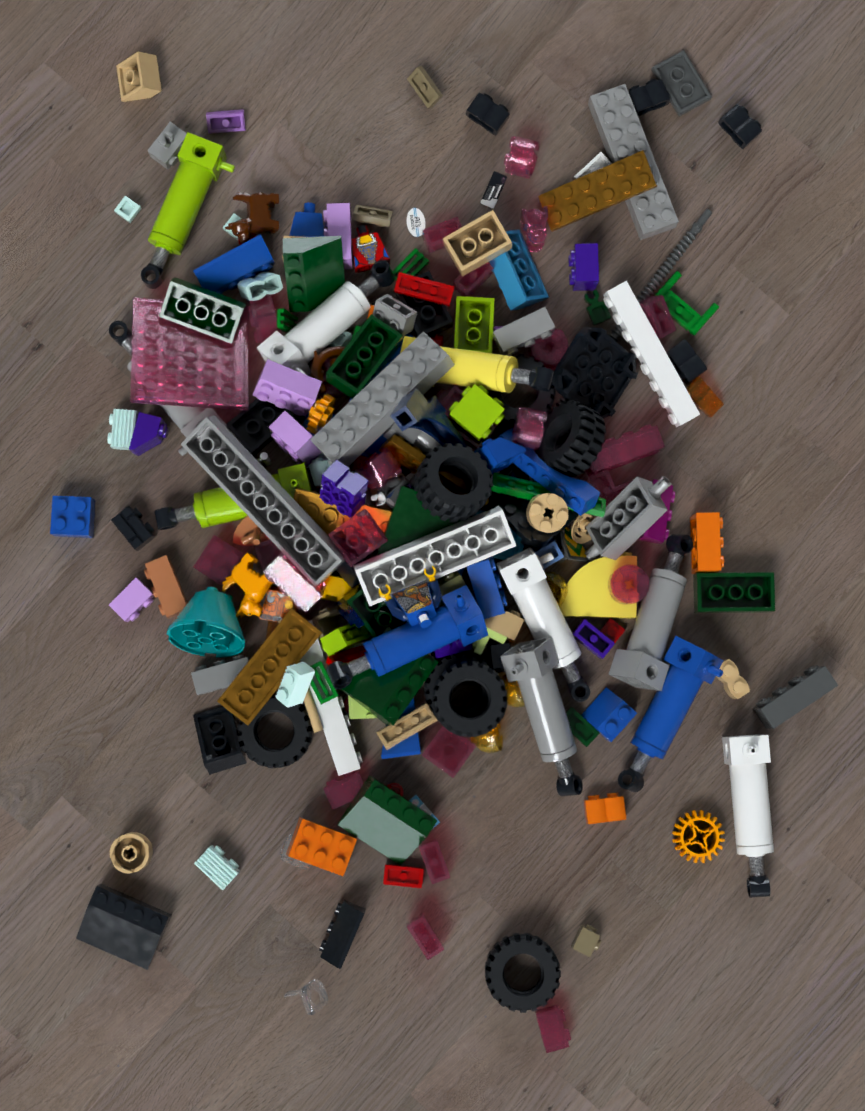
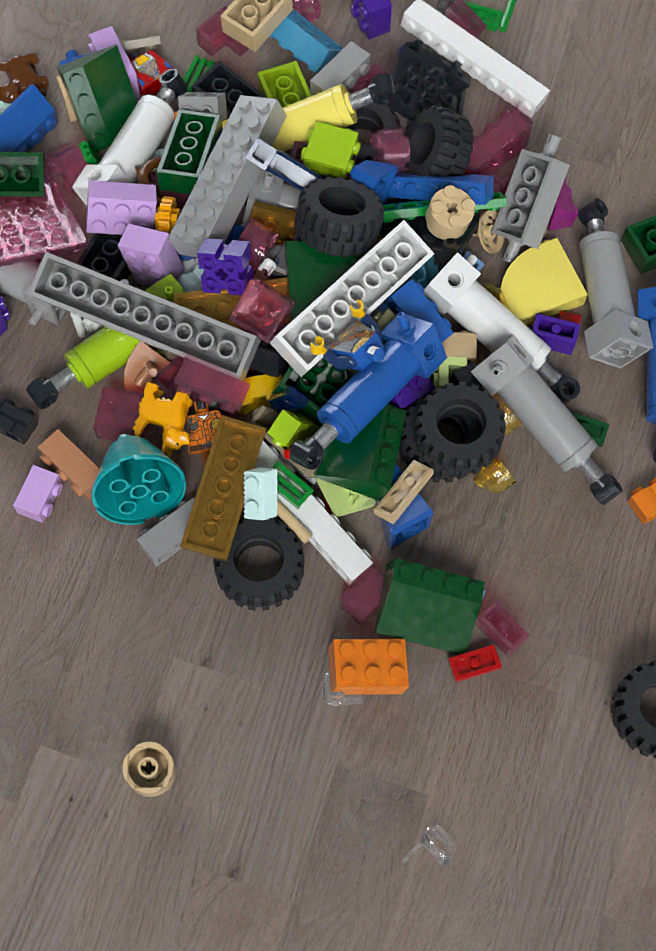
camera: 20 degrees left, 15 degrees down
(123, 926) = (174, 864): black slope -> none
(217, 866) = (258, 743): light aqua brick -> none
(219, 740) = (200, 601): black slope -> none
(258, 287) = (52, 137): light aqua brick -> none
(341, 933) = (437, 755): black slope -> none
(415, 222) = (185, 36): white sticker -> none
(424, 289) = (222, 74): red plate -> none
(425, 936) = (533, 717): clear pink brick -> none
(448, 751) = (459, 505): clear pink brick -> none
(472, 281) = (266, 56): clear pink brick -> none
(571, 549) = (490, 258): shield -> none
(597, 310) = (395, 40): dark green plate -> none
(608, 714) = (610, 401): blue slope -> none
(617, 587) = (564, 261): clear pink brick -> none
(686, 362) = (515, 52): black brick -> none
(704, 397) = (546, 77): clear orange plate -> none
(706, 542) = (621, 196): orange brick -> none

